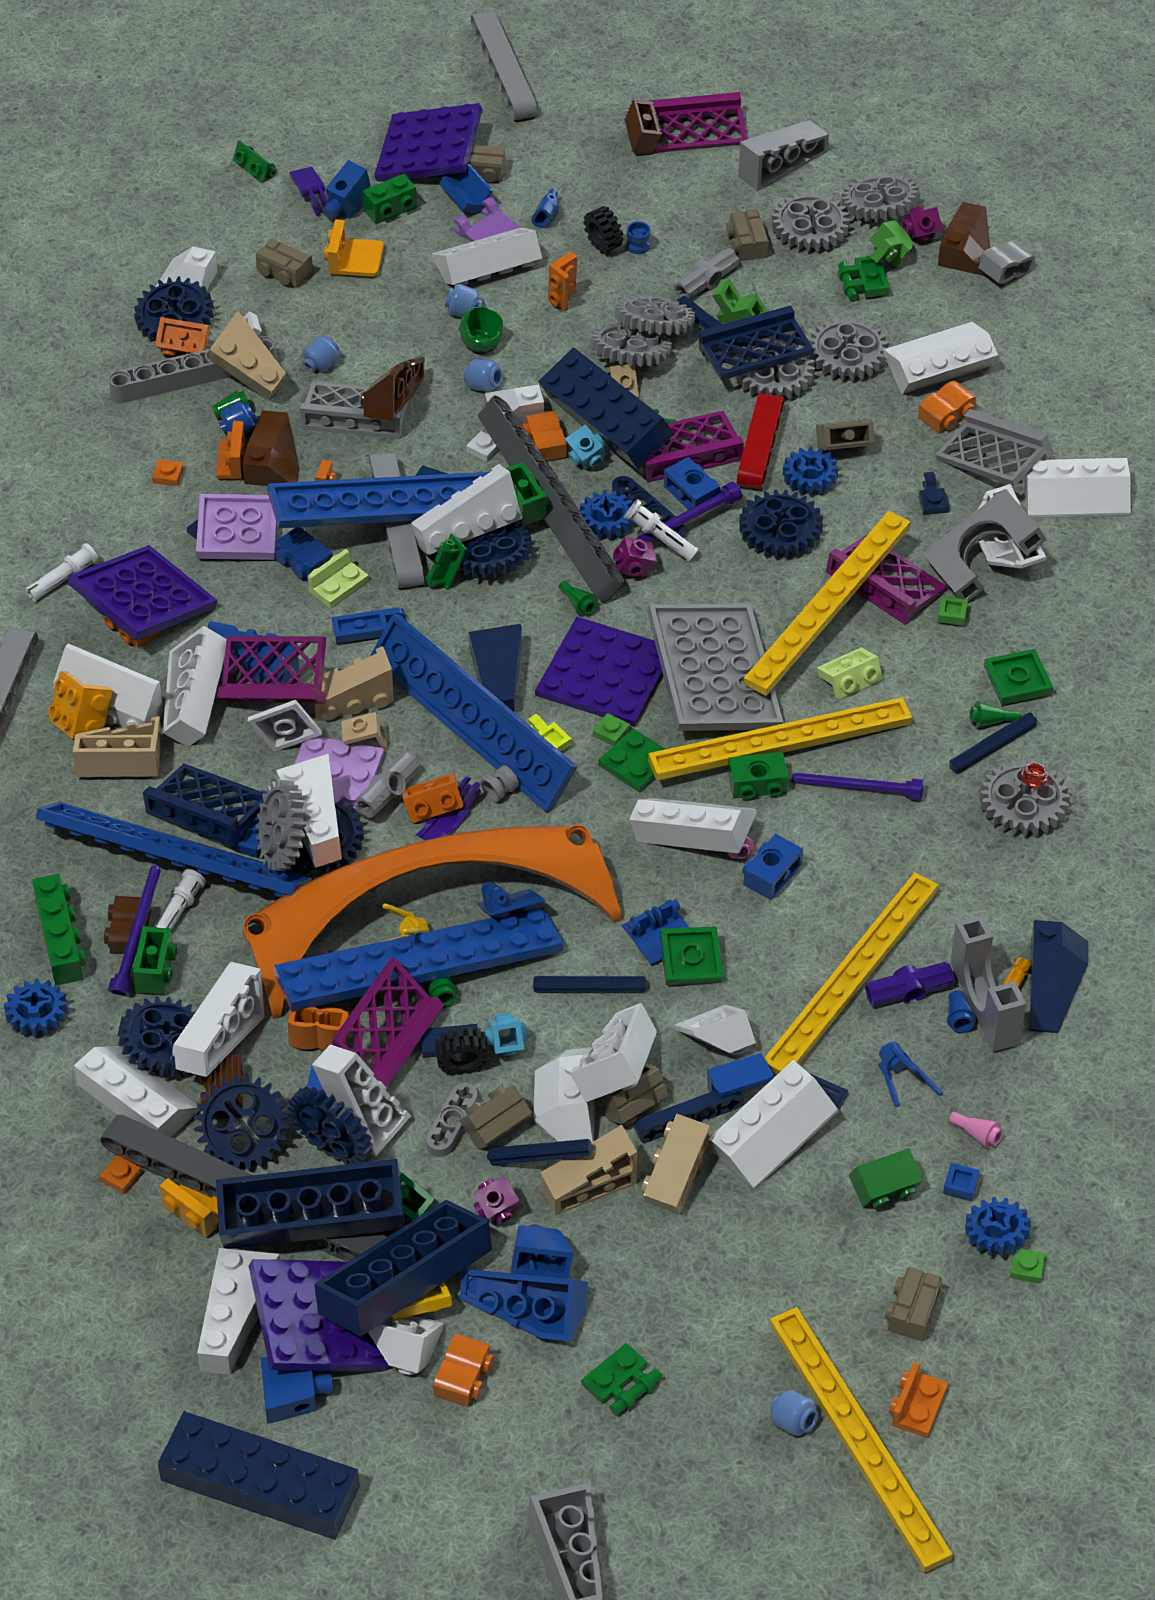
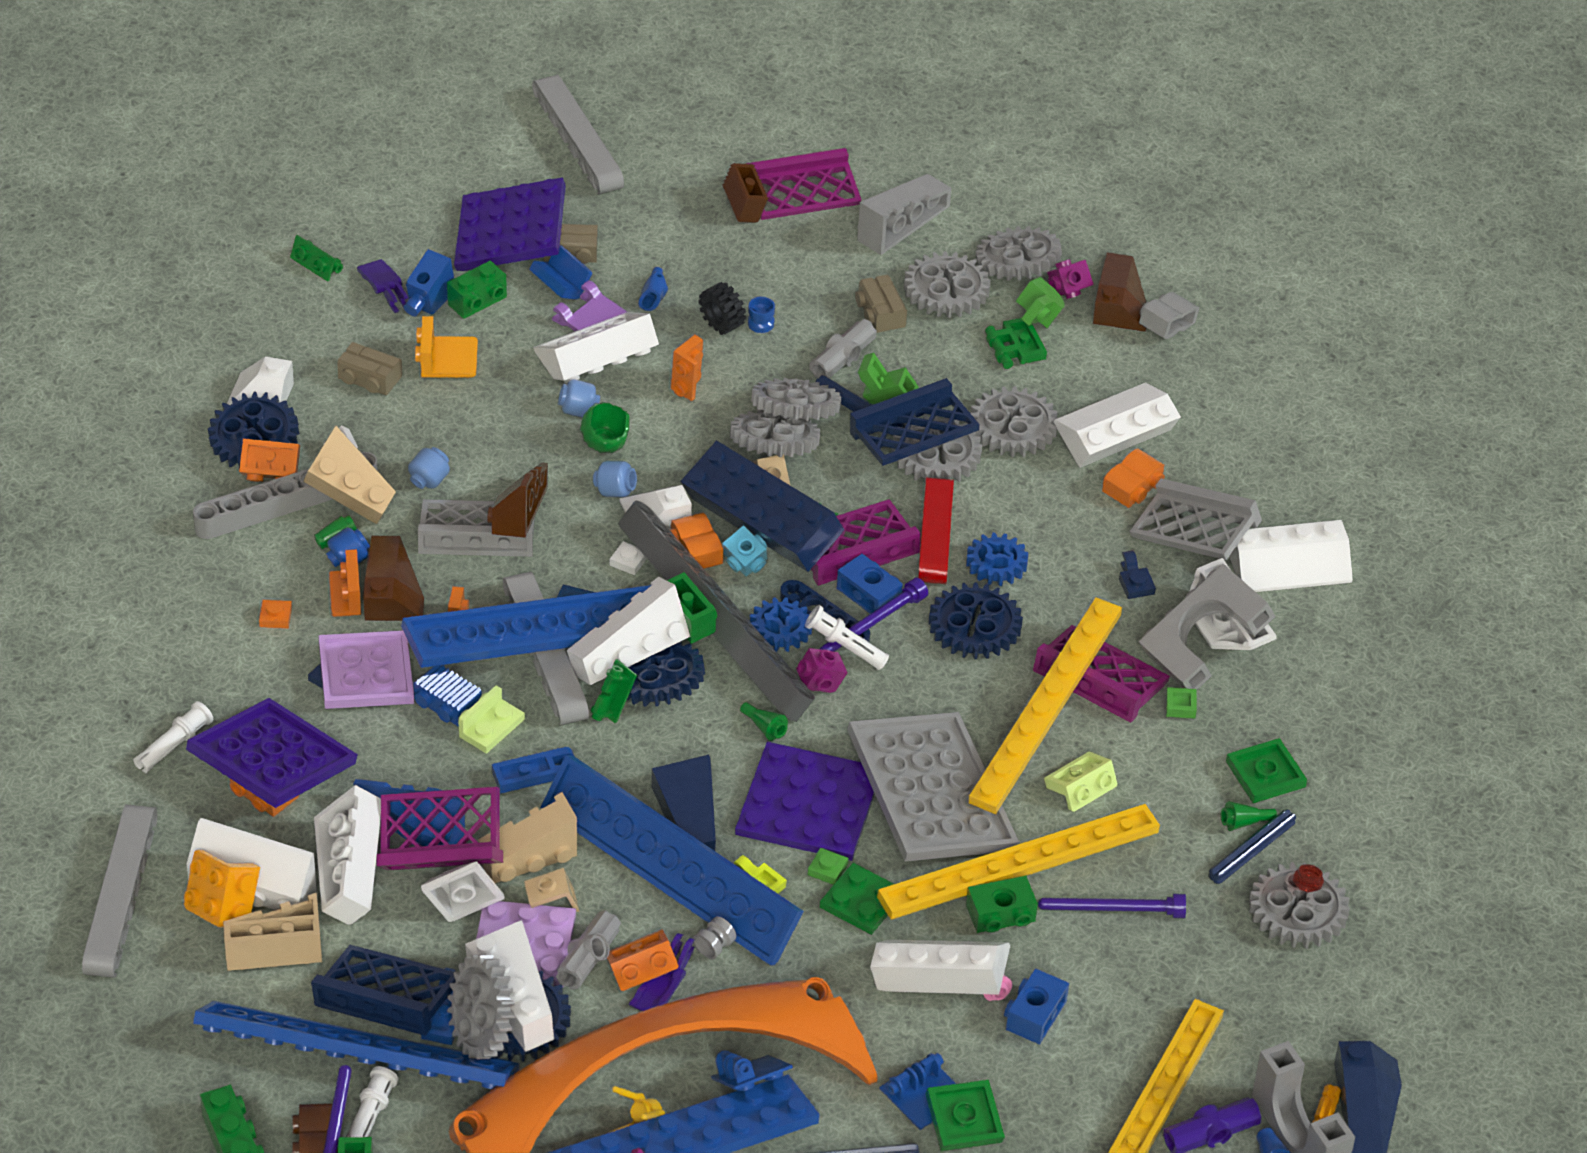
camera: 10 degrees left, 5 degrees down
(845, 434) = (1029, 516): dark tan brick -> none

